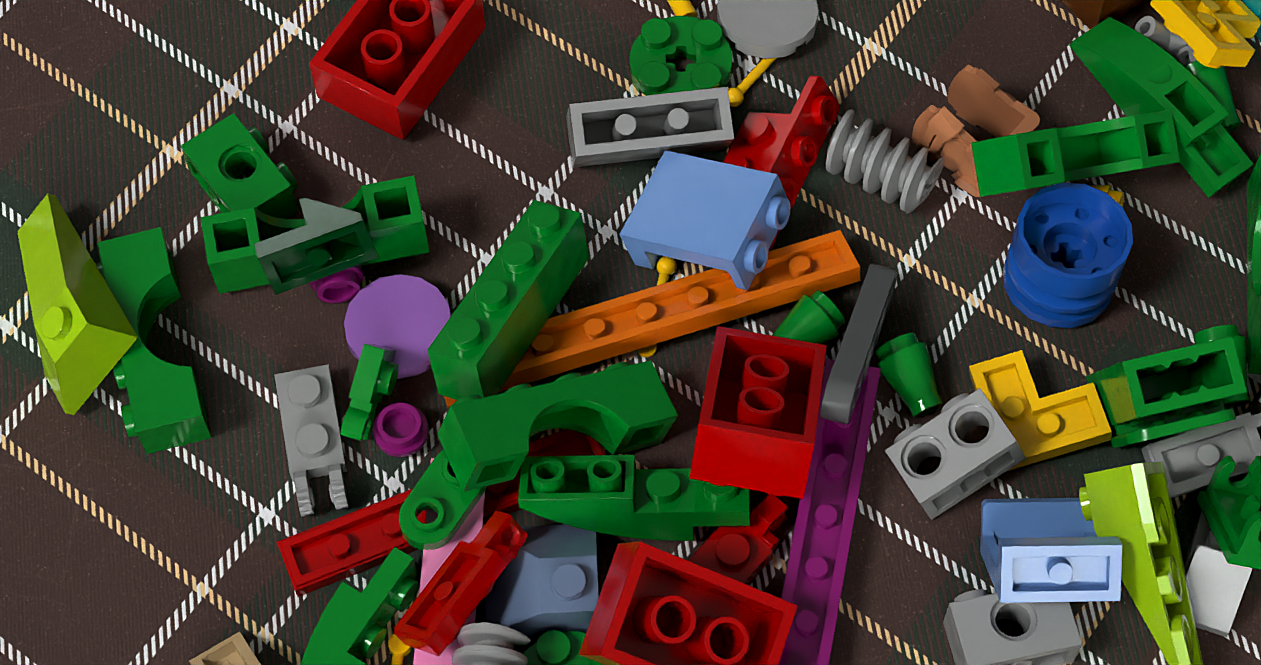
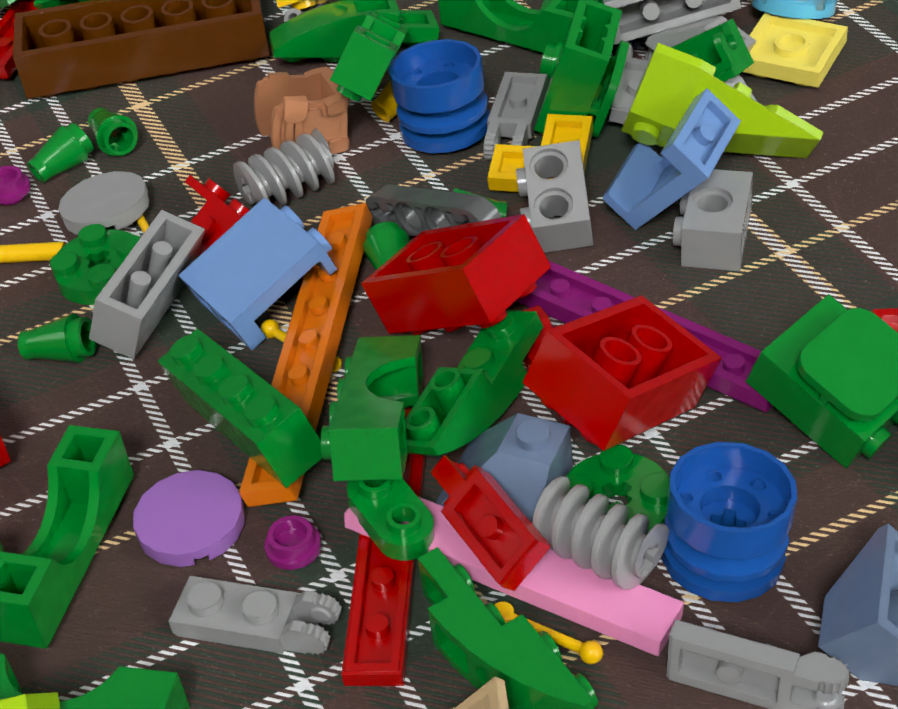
camera: 60 degrees left, 20 degrees down
(325, 245) = (78, 512): dark green slope -> none
(339, 286) = (110, 541): magenta plate -> none
(373, 378) = (238, 538): green plate -> none
(554, 89) = (58, 340): none -> green cone
(1103, 341) = (515, 110): none -> light grey hinge

